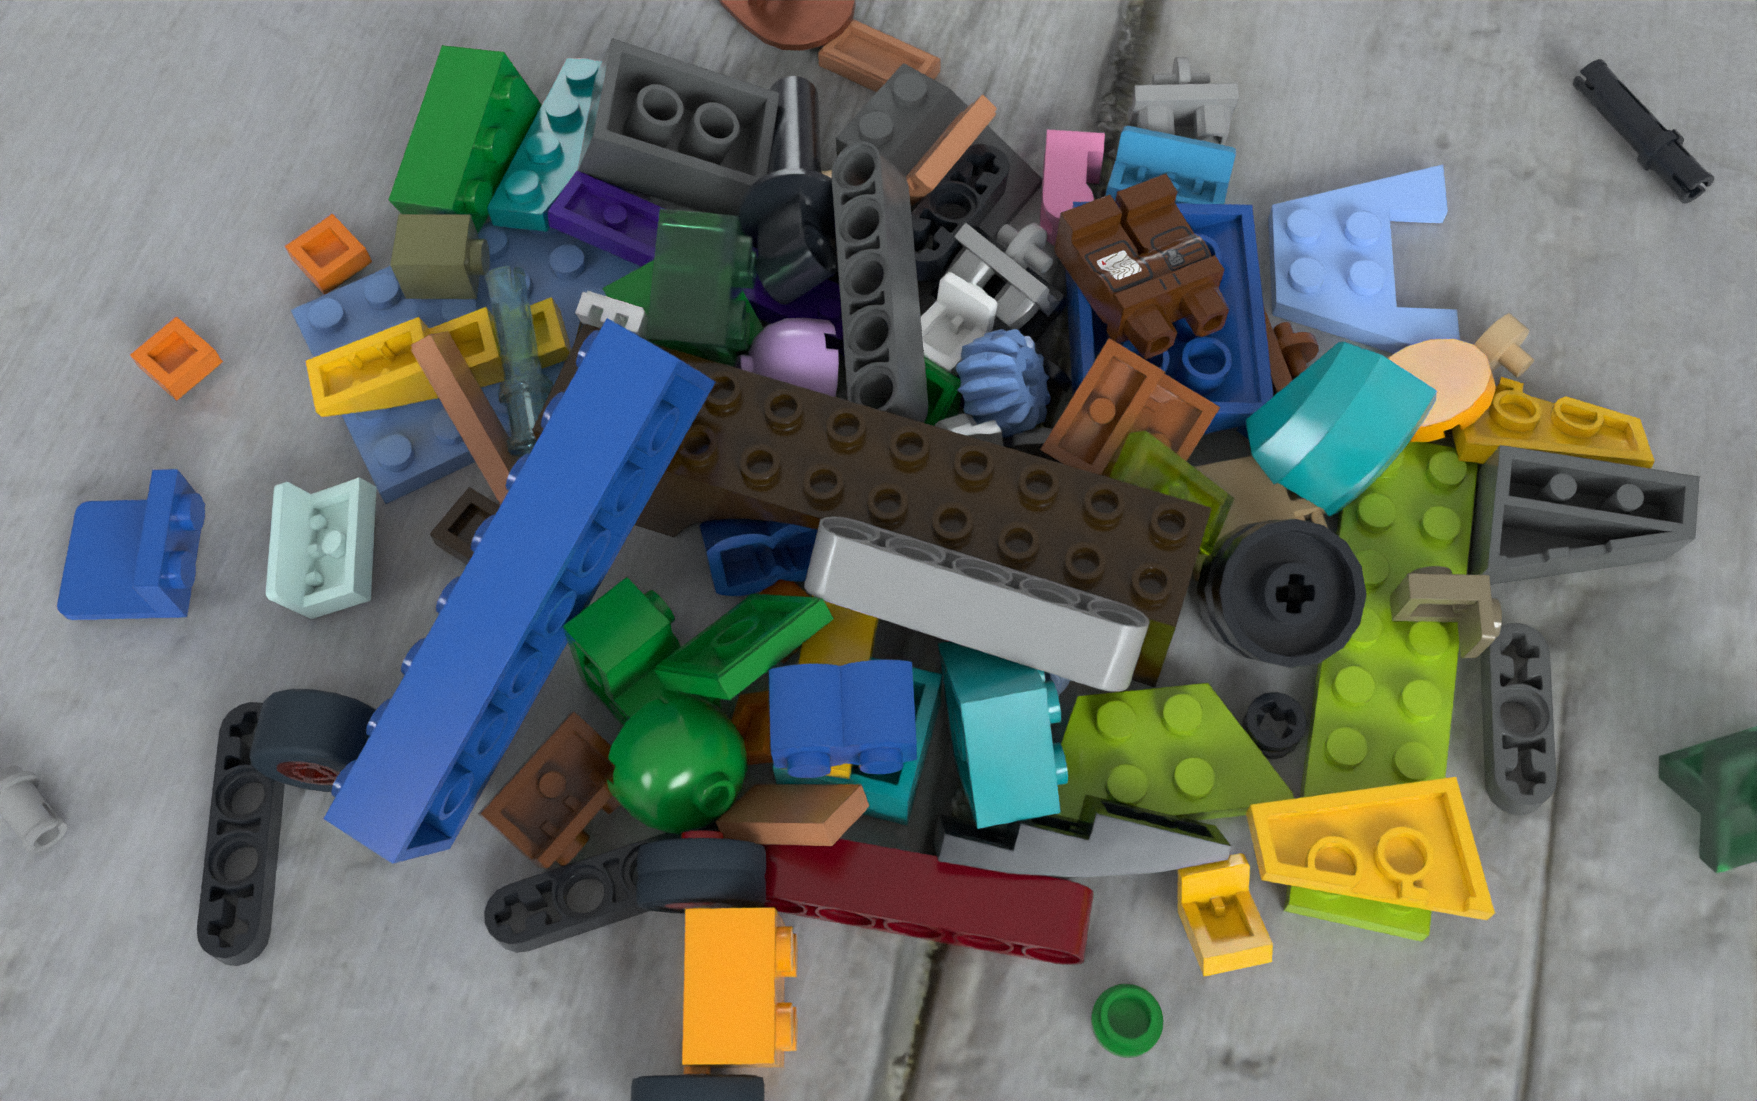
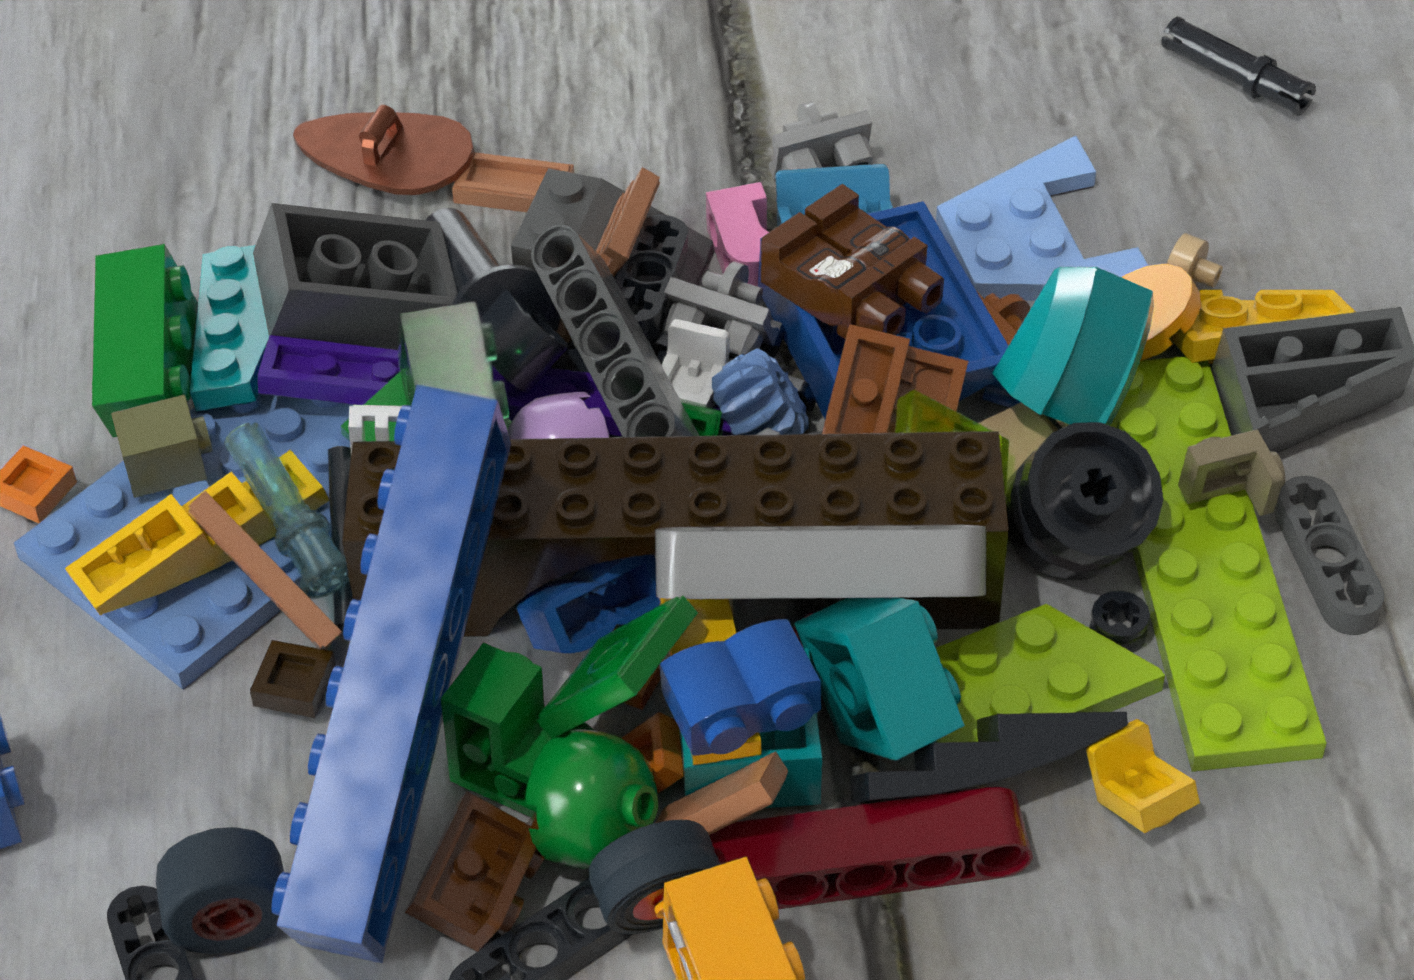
camera: 20 degrees left, 15 degrees down
(321, 547) = (145, 735): light aqua bracket -> none
(1127, 1020) = (1091, 894): green plate -> none
(1378, 845) = (1250, 674): yellow wing -> none

